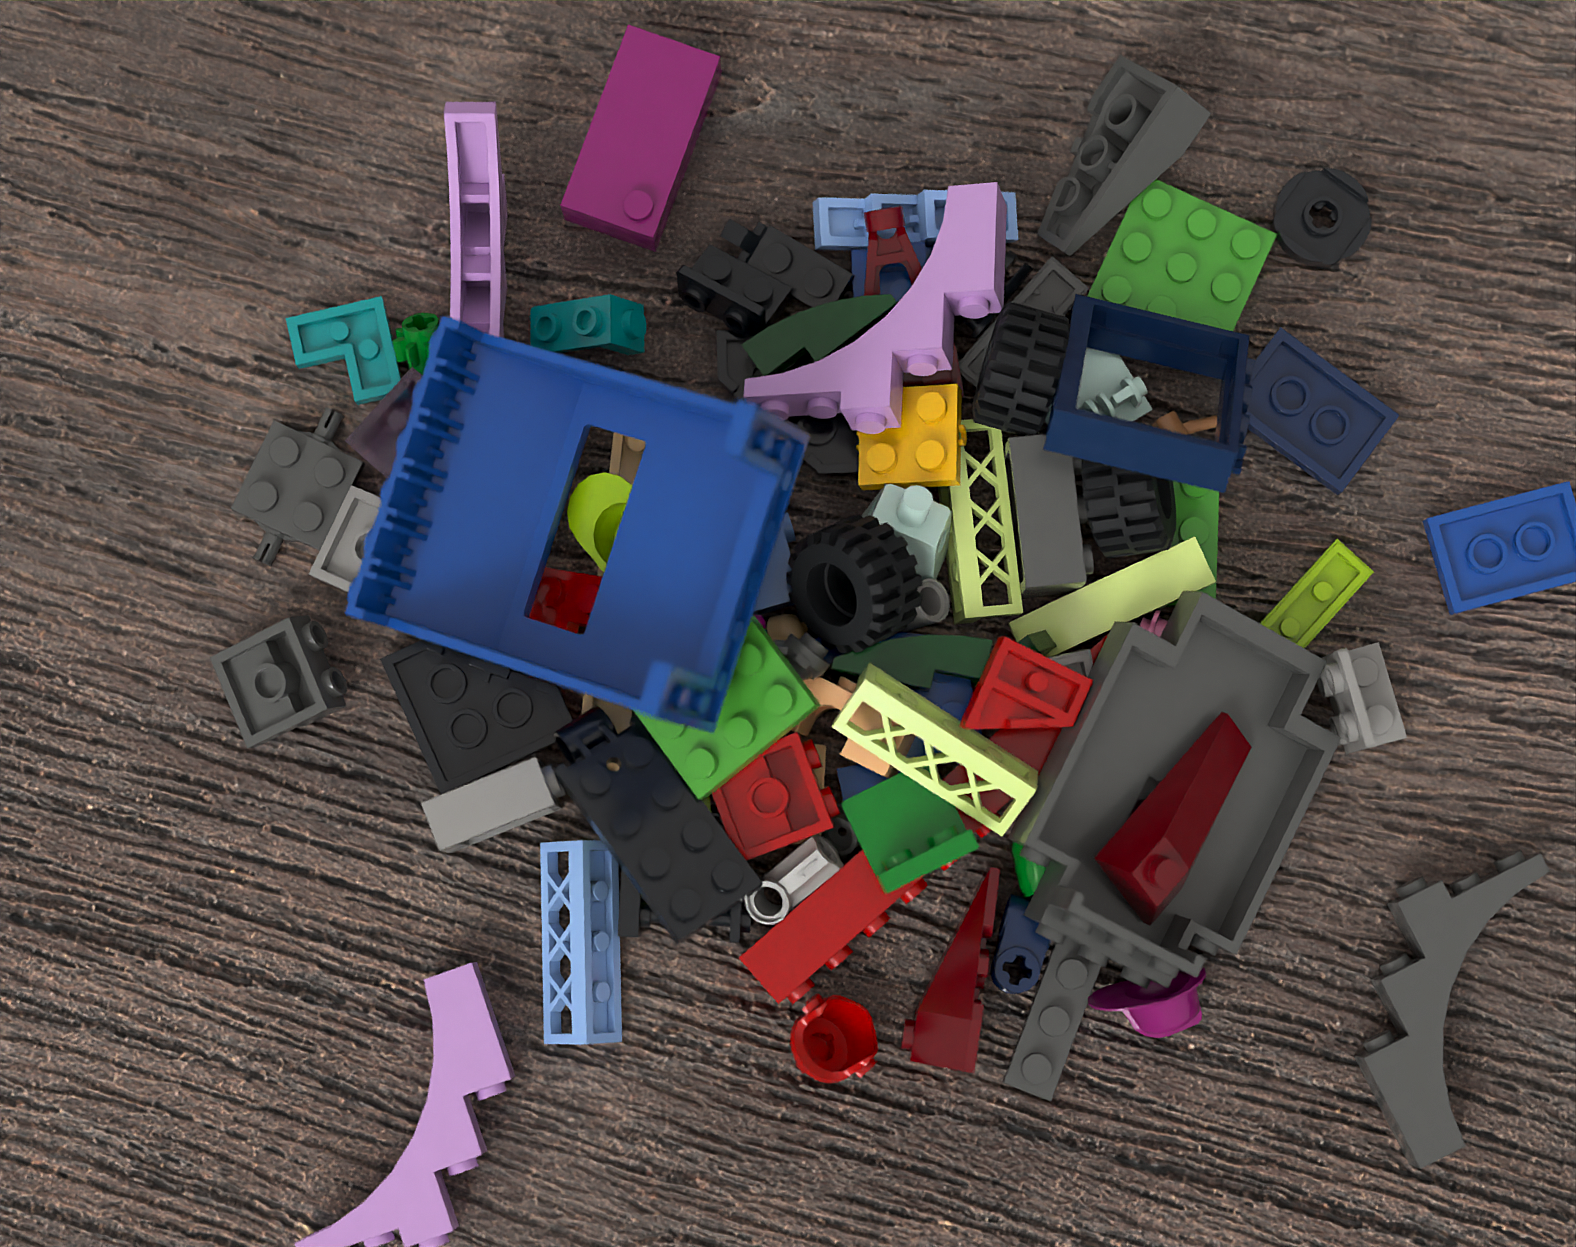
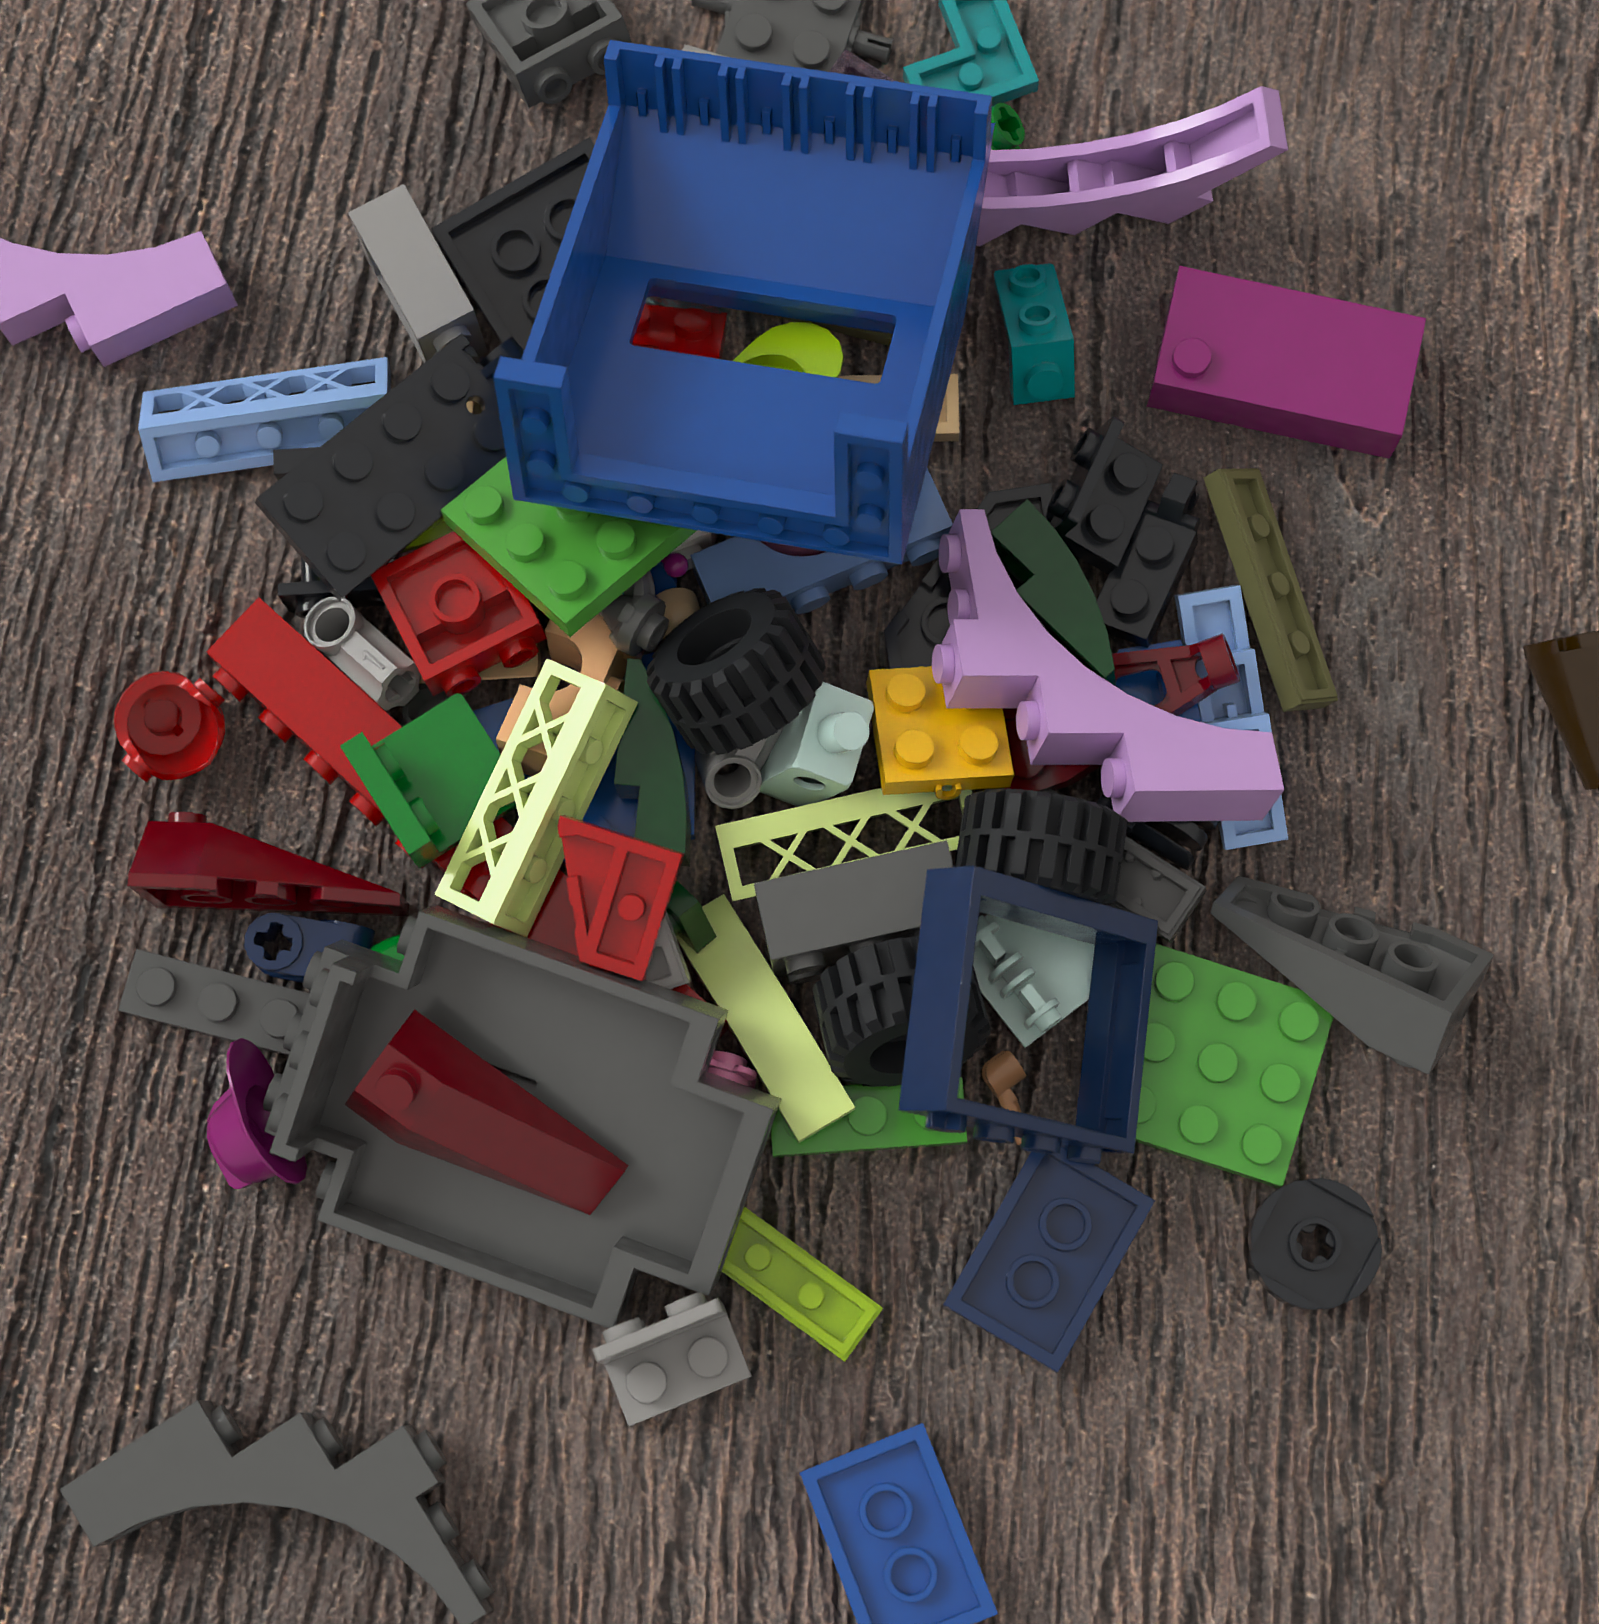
camera: 90 degrees right, 5 degrees down
(820, 176) = (1271, 589): none -> olive tile

